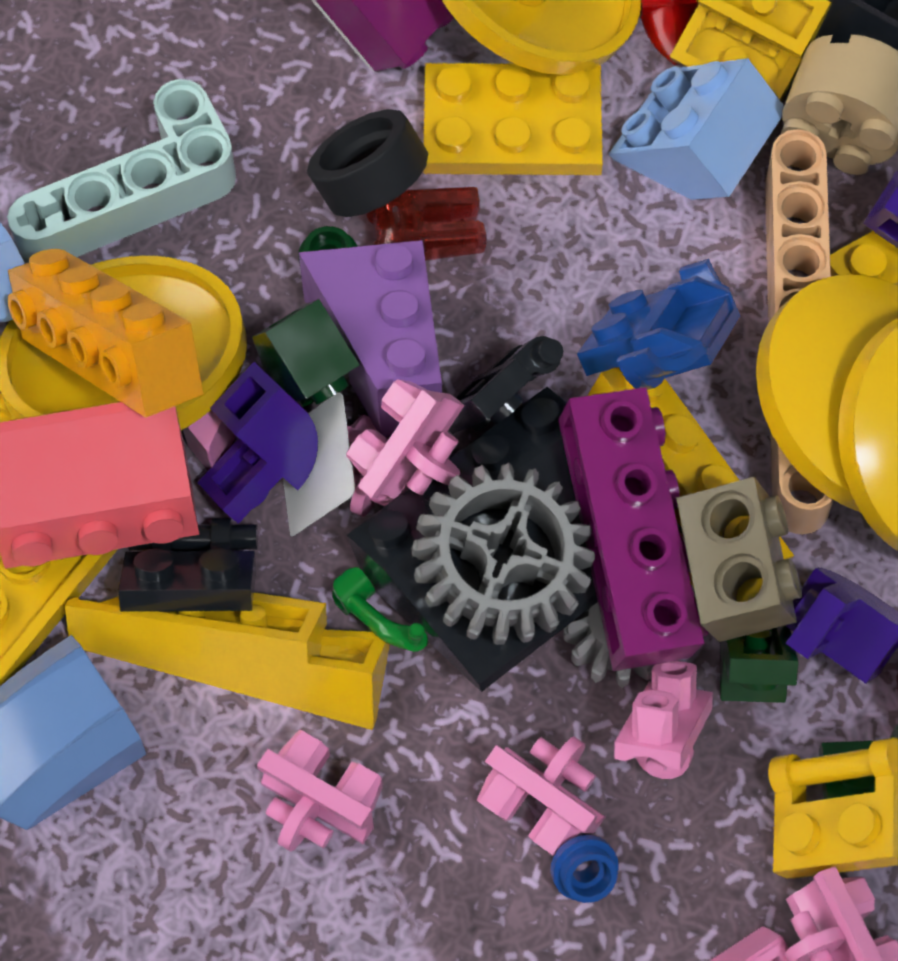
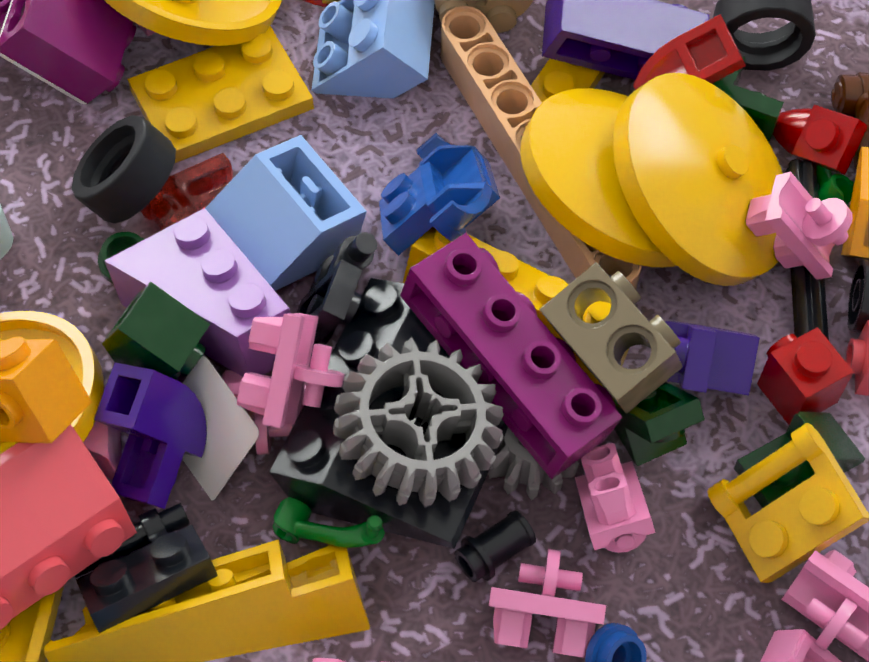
camera: 30 degrees left, 5 degrees down
(500, 281) = (287, 212): none -> light blue slope
(530, 709) = (483, 554): none -> black pin

